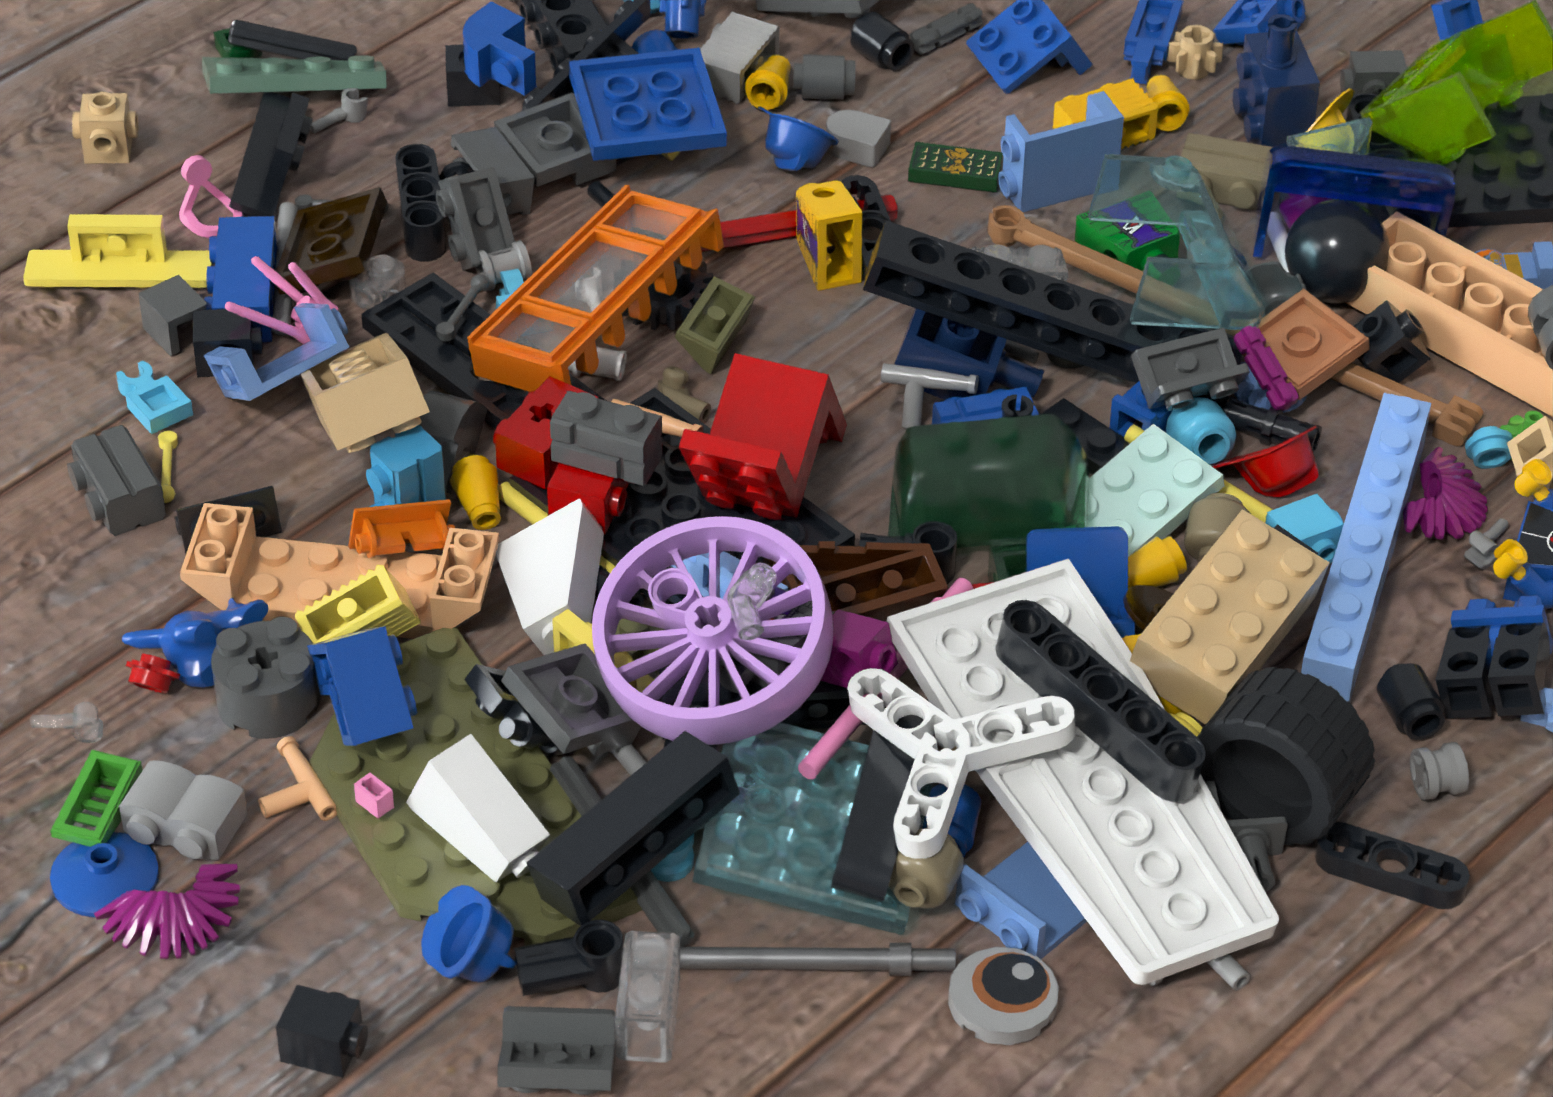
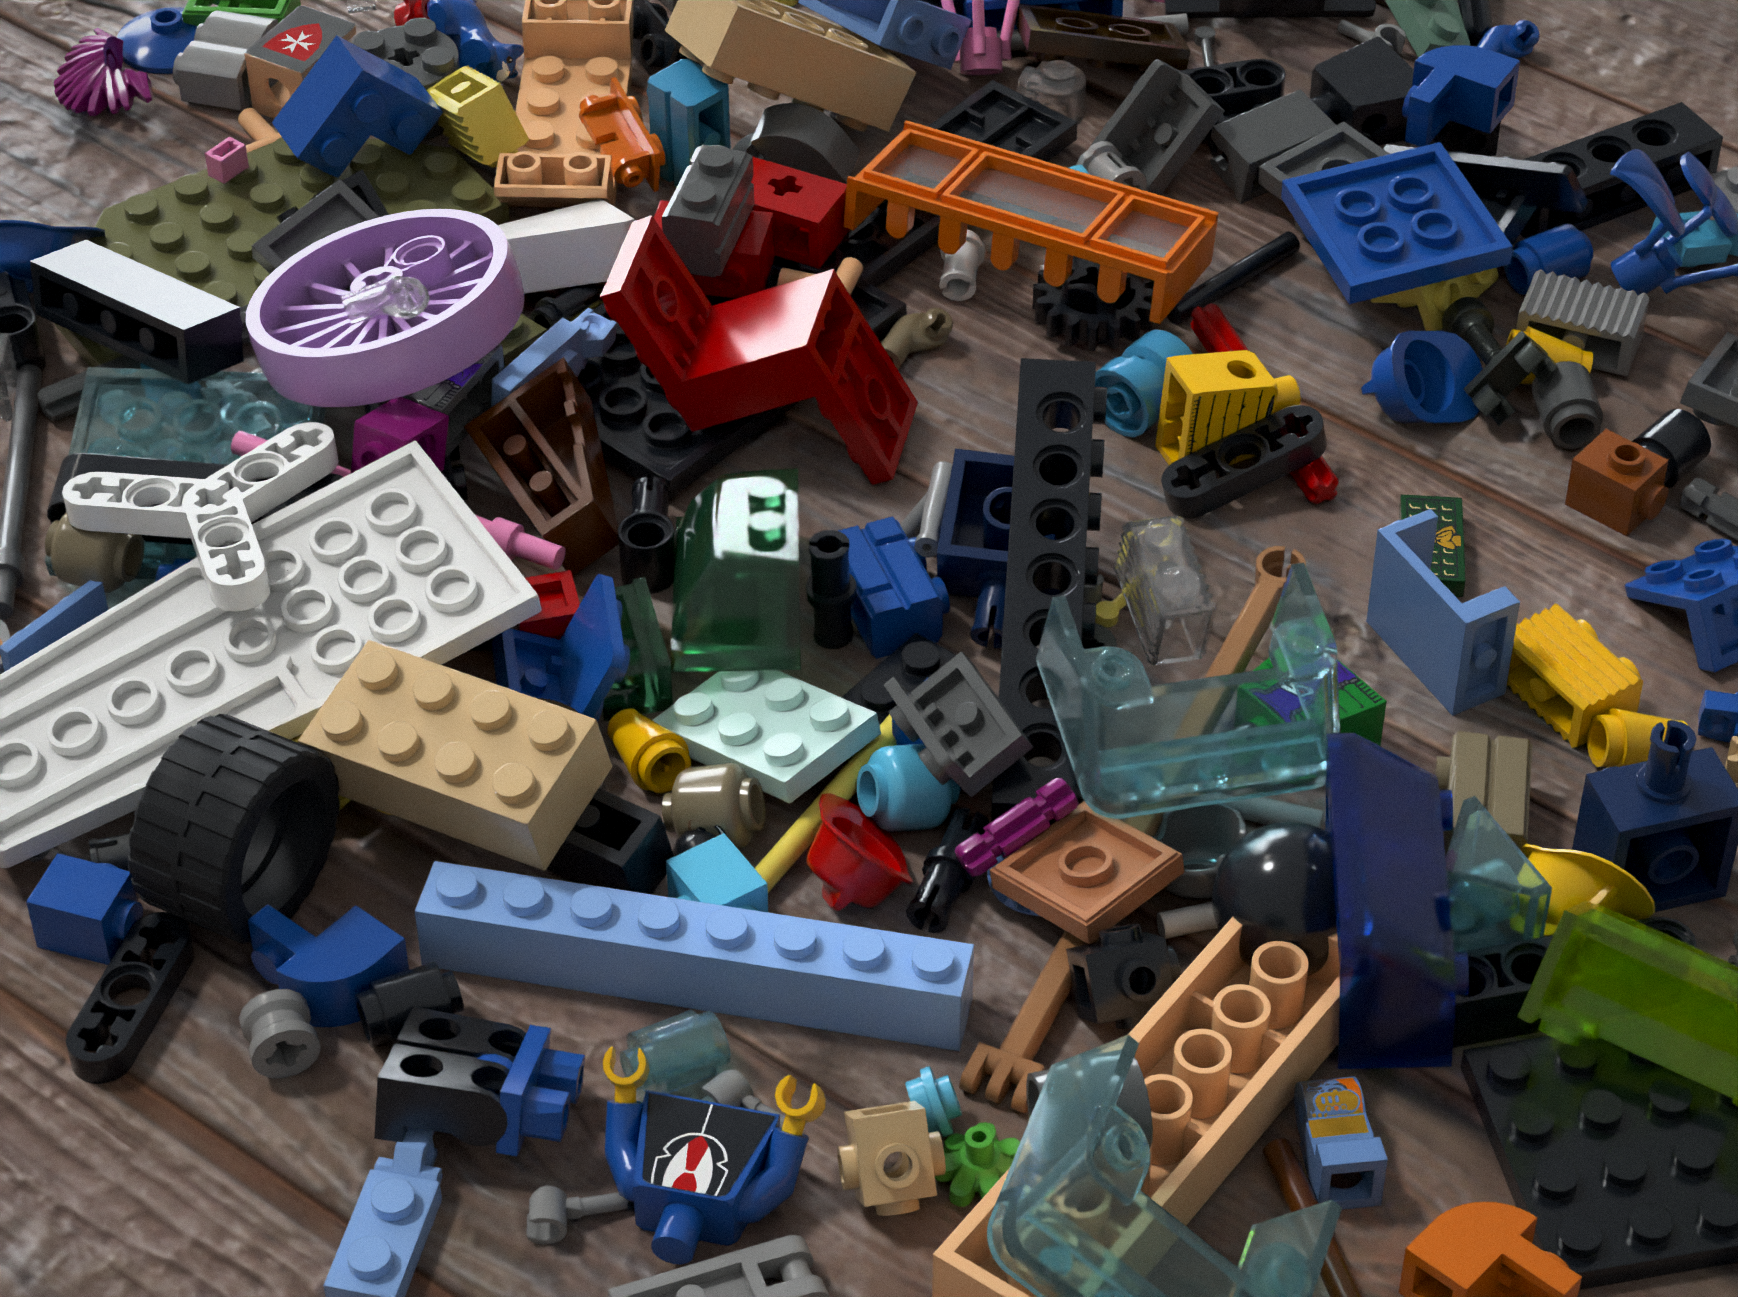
camera: 85 degrees right, 0 degrees up
(228, 741) = (289, 55): none -> piece
(369, 44) = (1511, 40): none -> blue arm
(429, 113) = (1365, 90): none -> black torso
(446, 330) = (1058, 153): dark grey hinge -> none
(478, 810) = (177, 206): white slope -> none
(714, 323) = (1021, 331): olive slope -> none
(777, 270) = (1136, 382): none -> dark azure wheel
(797, 71) = (1504, 366): none -> pearl dark grey bar
(860, 136) = (1459, 448): light grey piece -> none
(912, 68) = (1617, 482): none -> dark orange brick
(1104, 700) = (284, 619): black beam -> none
(1313, 884) = (83, 908): none -> blue brick
(1391, 733) = (329, 966): none -> blue brick
(1449, 499) = (826, 1055): magenta hair -> none
(1452, 565) = (678, 1051): none -> clear light blue brick

